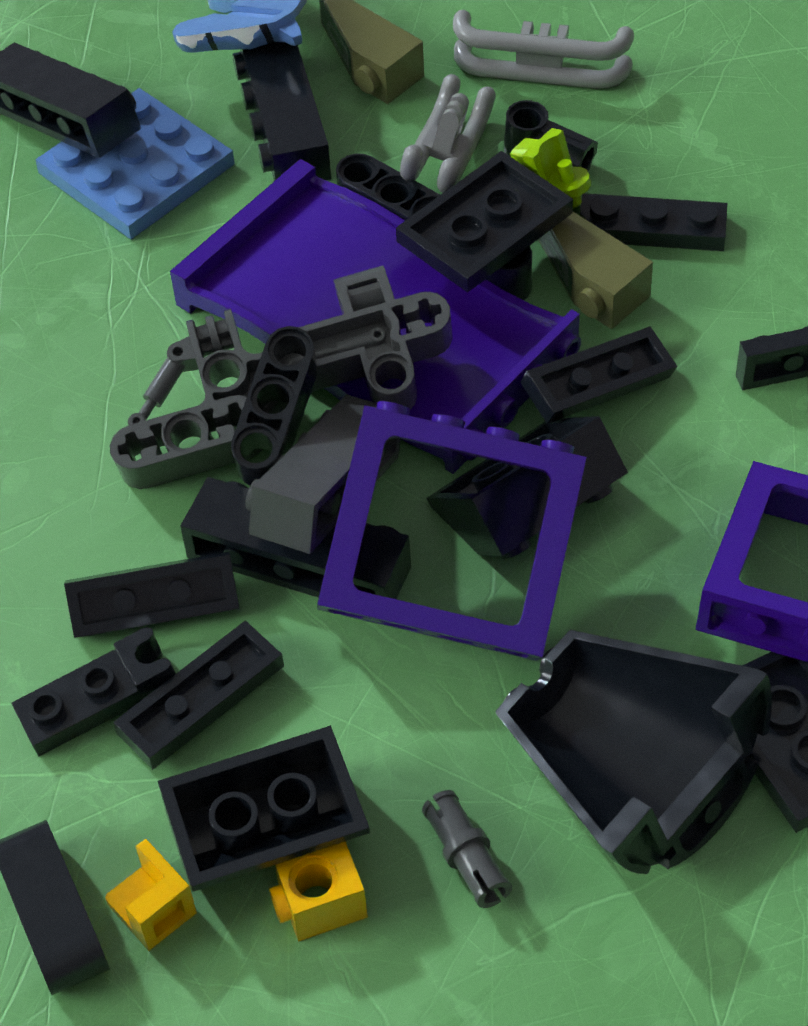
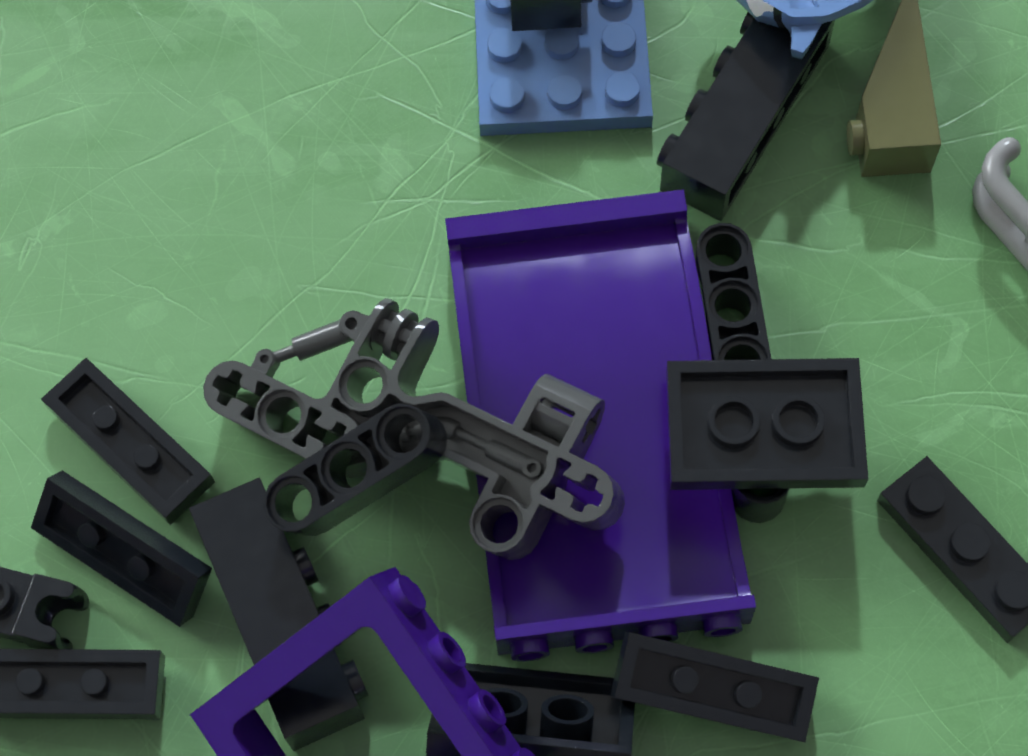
camera: 45 degrees right, 15 degrees up
(86, 541) = (128, 441): none -> black plate
(305, 487) = (285, 585): dark grey brick -> none
(442, 134) = (845, 282): light grey piece -> none
(531, 121) = (957, 369): black piece -> none
(552, 162) = (899, 416): lime hips -> none
(598, 270) = (842, 565): olive slope -> none

